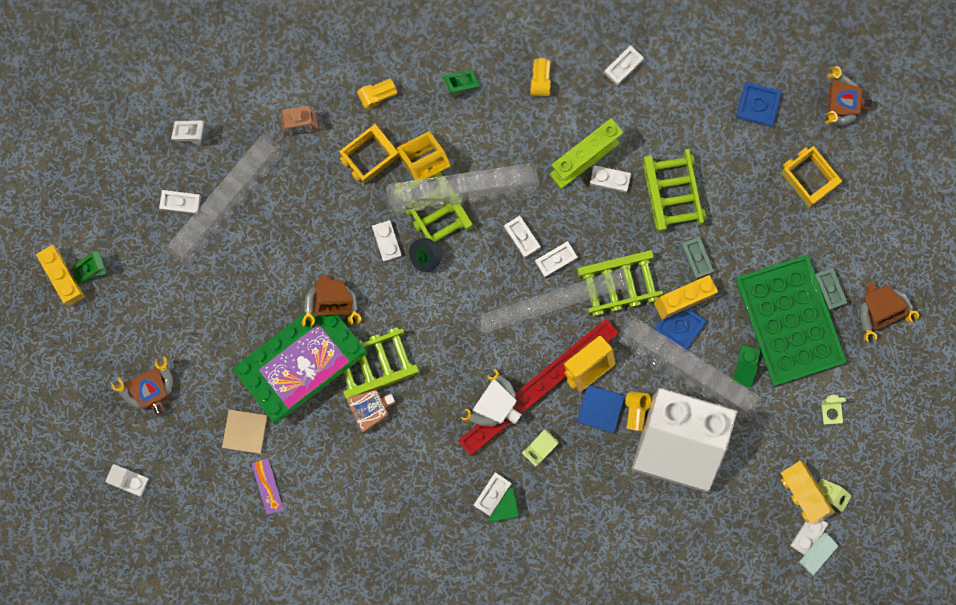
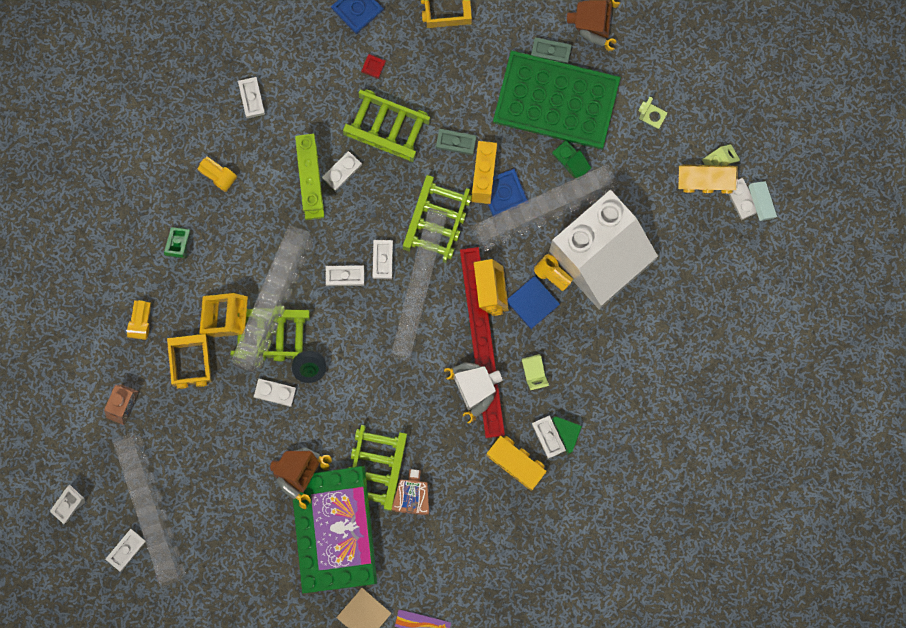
camera: 60 degrees left, 0 degrees up
(453, 480) = (516, 462): none -> yellow brick
(717, 149) = (373, 66): none -> red tile

